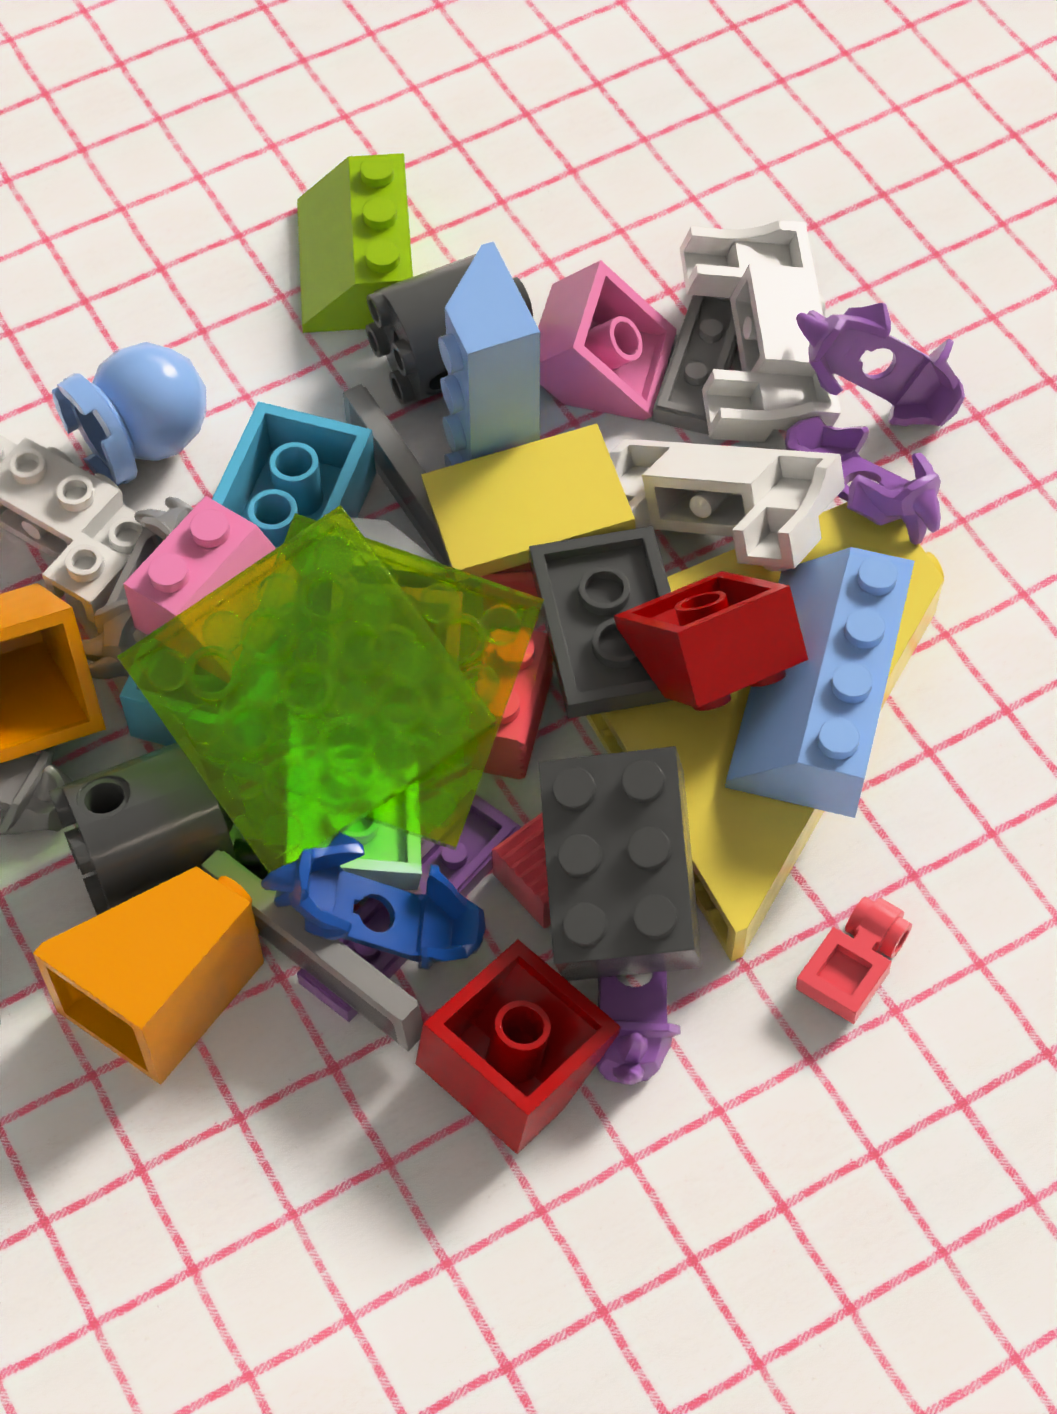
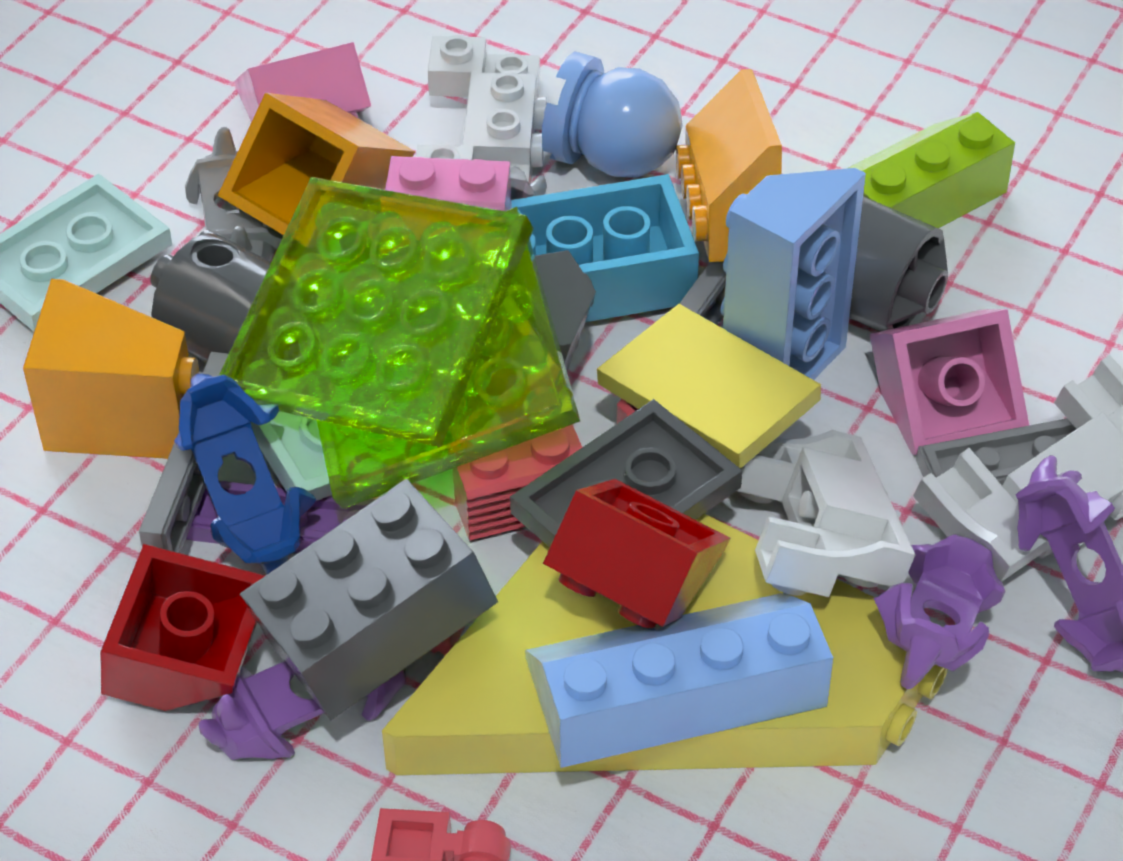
camera: 60 degrees right, 10 degrees down
(301, 346) = (726, 155): none -> light orange slope

